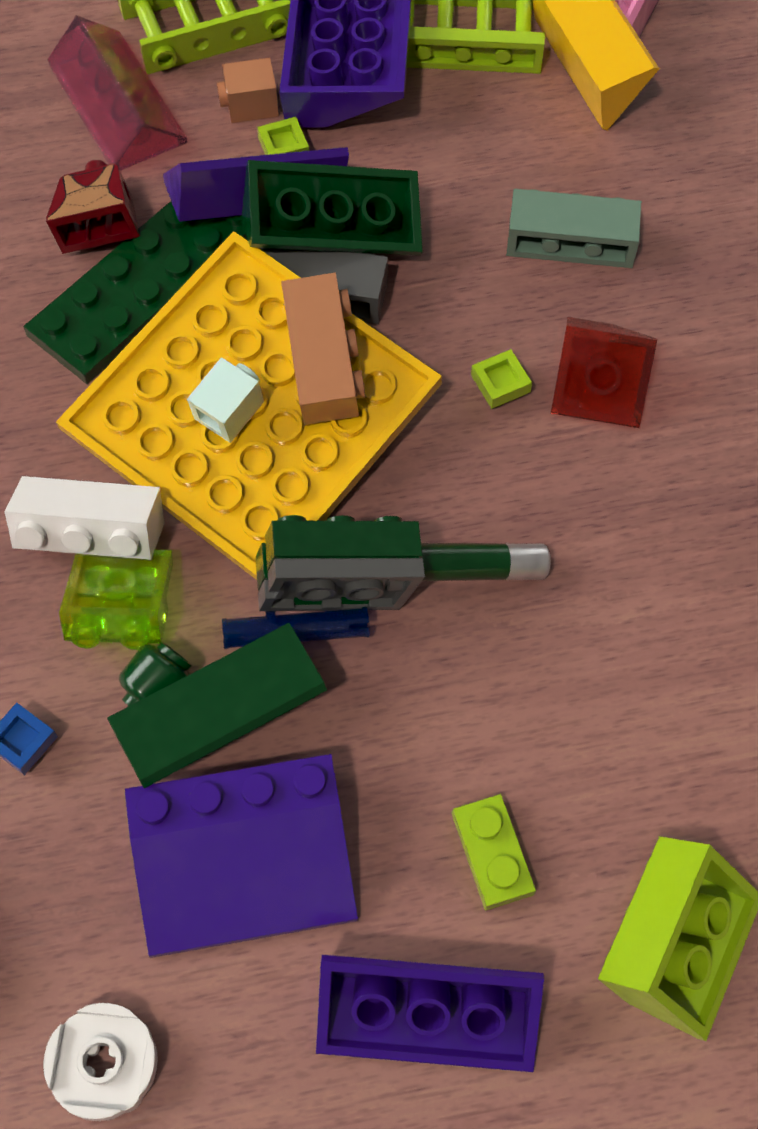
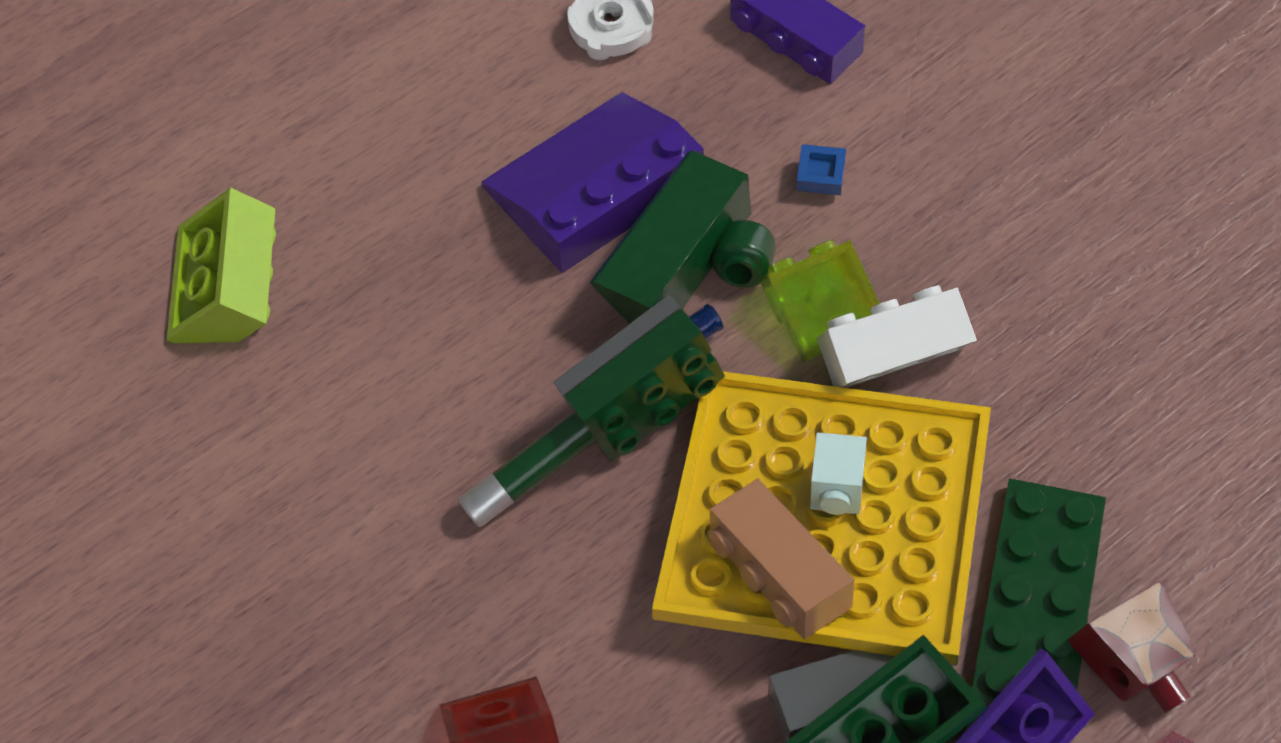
camera: 155 degrees right, 5 degrees down
(428, 1013) = (397, 148): dark purple slope -> none
(493, 852) = (399, 271): lime plate -> none
(501, 378) = (602, 677): lime plate -> none

